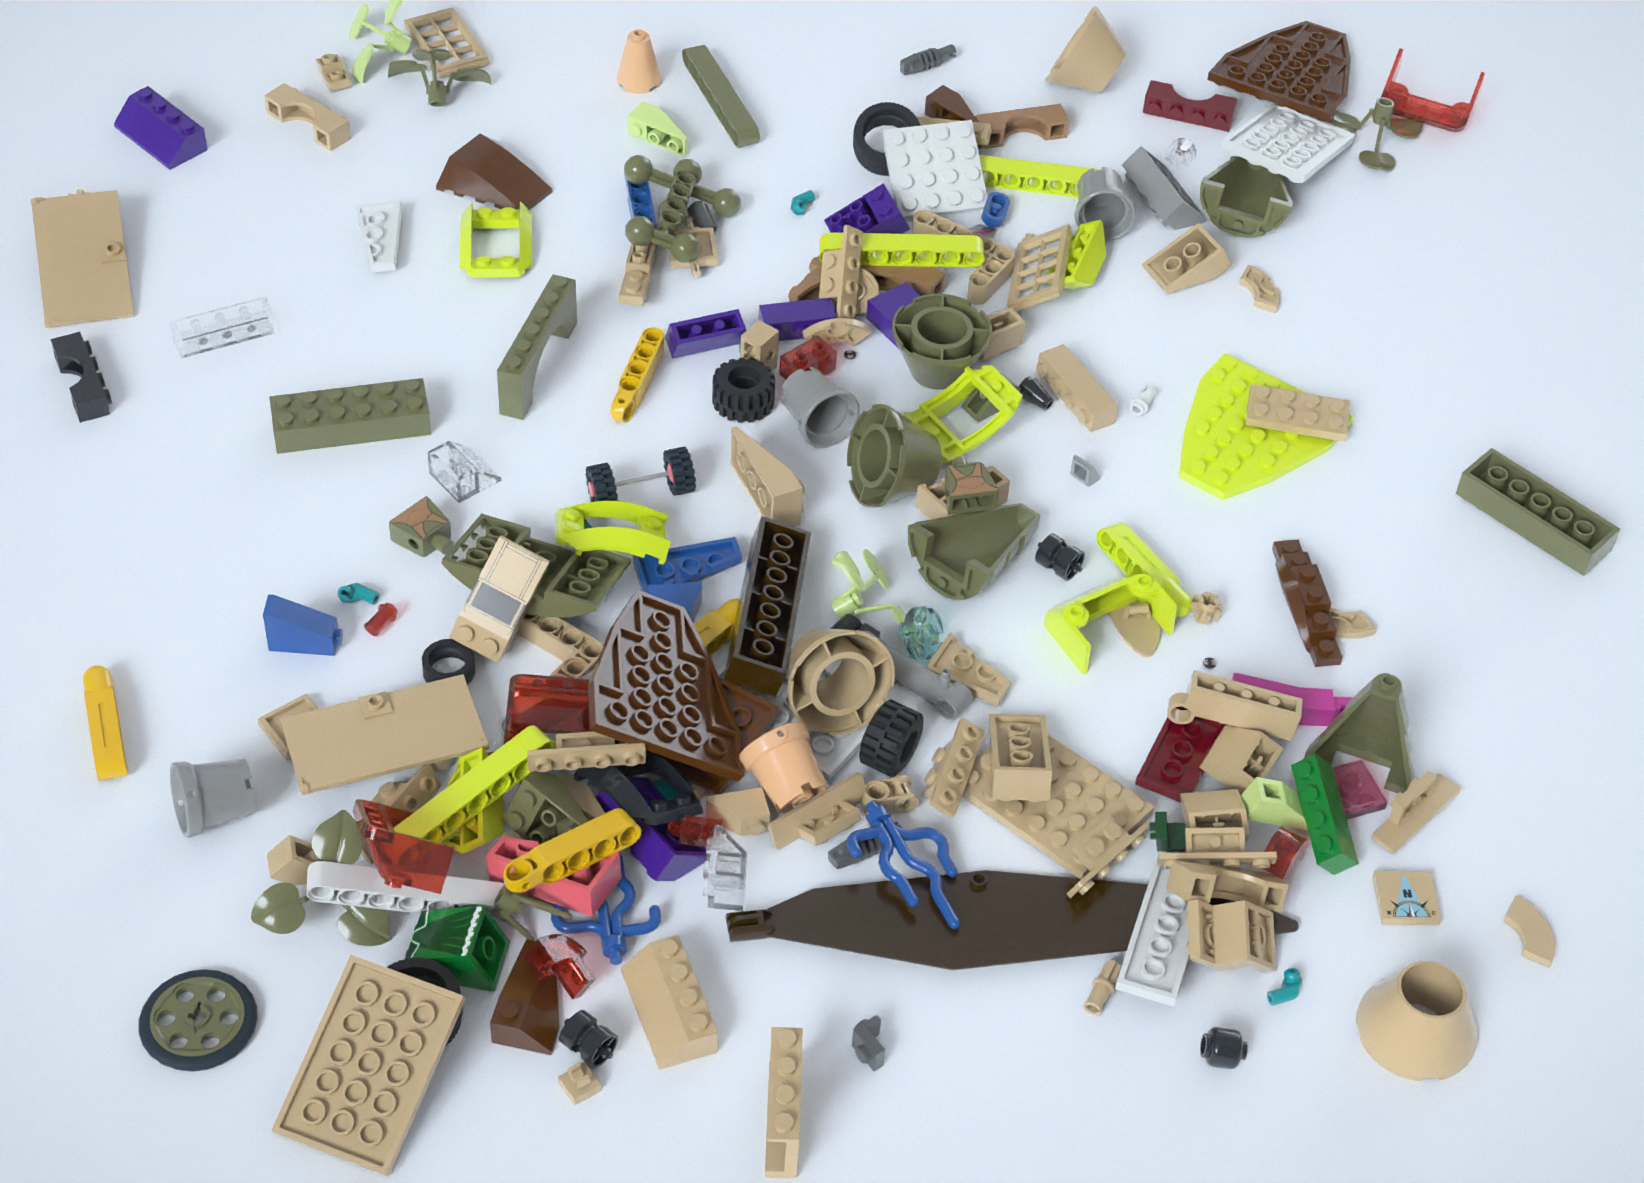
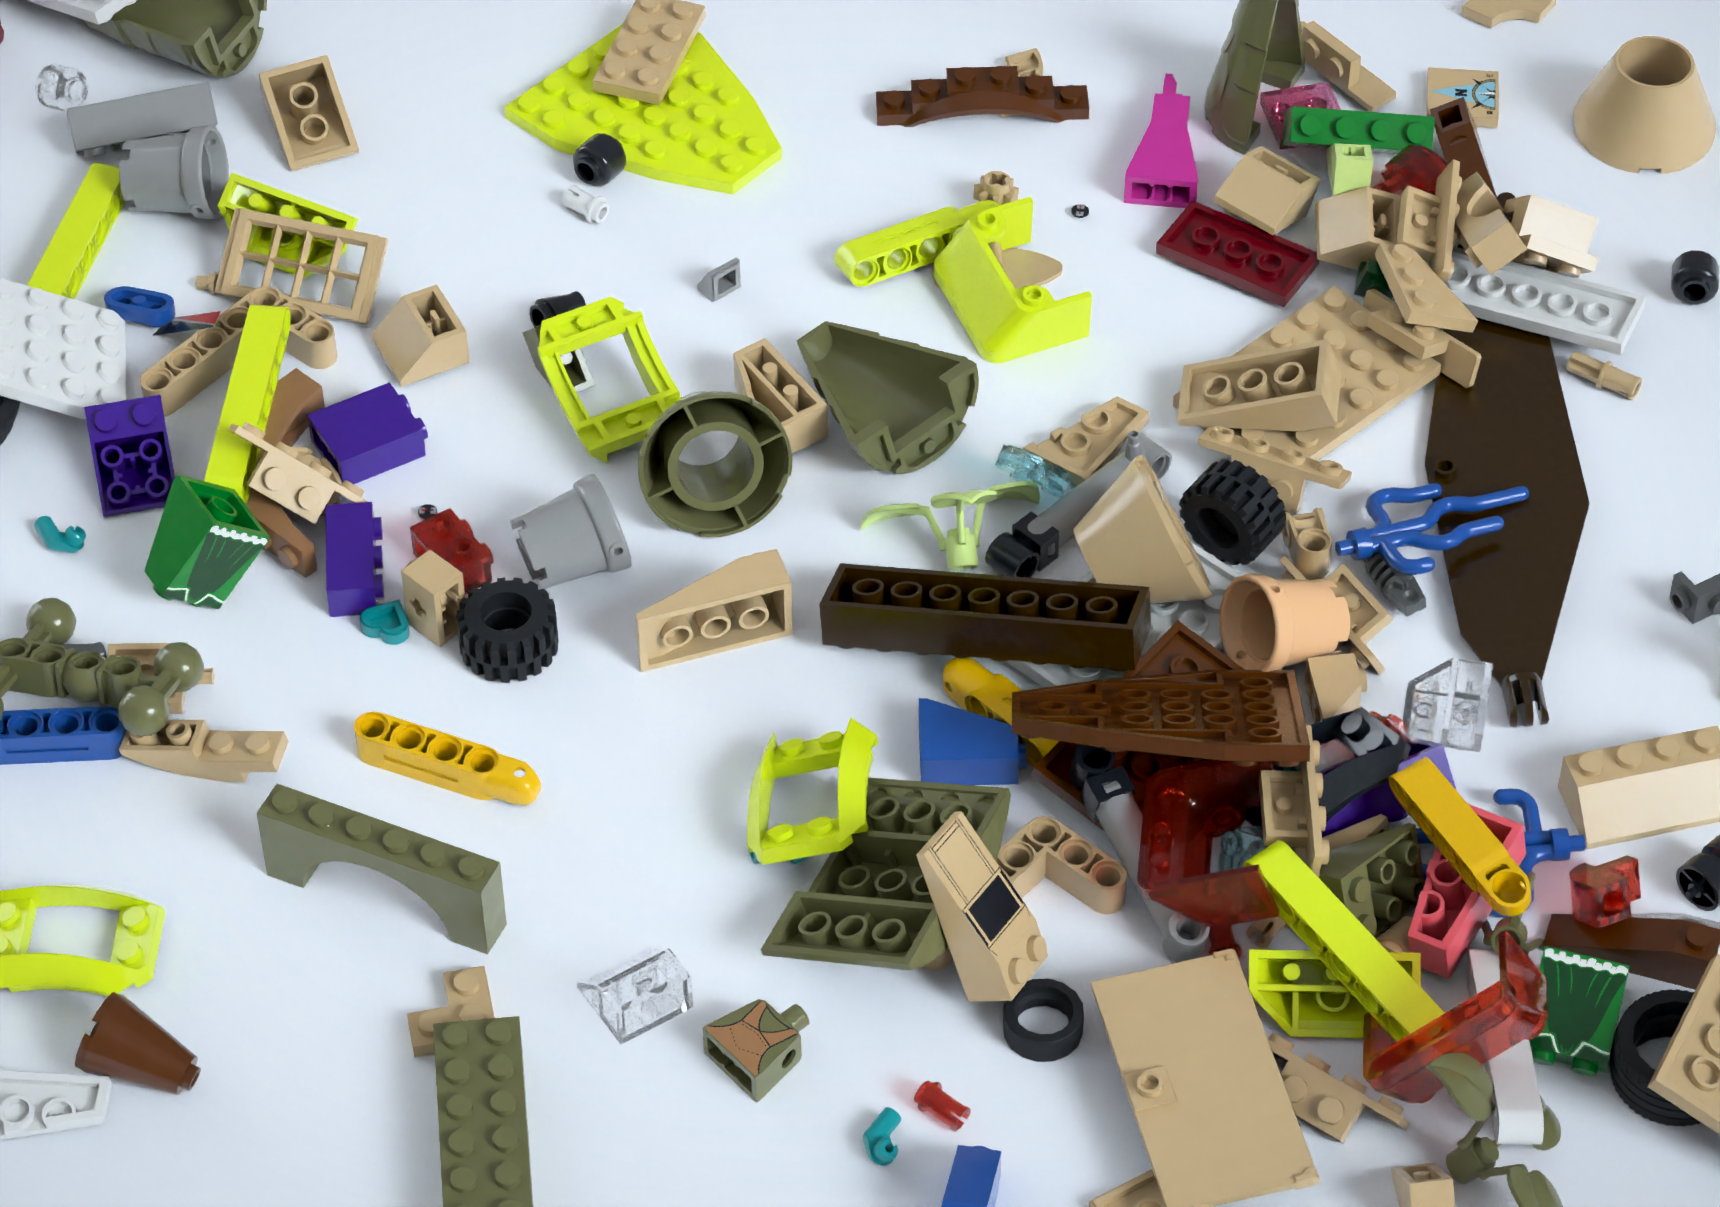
camera: 80 degrees left, 0 degrees up
(412, 267) = (135, 1049): none -> reddish brown cone
(449, 407) = (467, 1000): none -> tan plate
(677, 468) = (705, 804): black axle -> none
(687, 563) = (850, 694): blue wing -> none
(705, 333) = (374, 661): dark purple brick -> none
(779, 240) = (203, 543): none -> green slope
(838, 330) = (395, 510): tan tile -> none
(940, 337) = (472, 370): olive cone -> none
(969, 487) = (789, 373): olive torso -> none
(1062, 558) = (897, 316): black wheel -> none
(1077, 388) = (554, 264): tan brick -> none
(1137, 841) = (1420, 292): none -> tan wing
(1181, 399) = (599, 159): none -> black head
(1236, 705) = (1203, 170): tan hinge -> none
(1261, 287) = (386, 52): tan tile -> none
(1289, 989) = (1606, 218): teal arm -> none
(1332, 886) = (1461, 140): none -> reddish brown slope

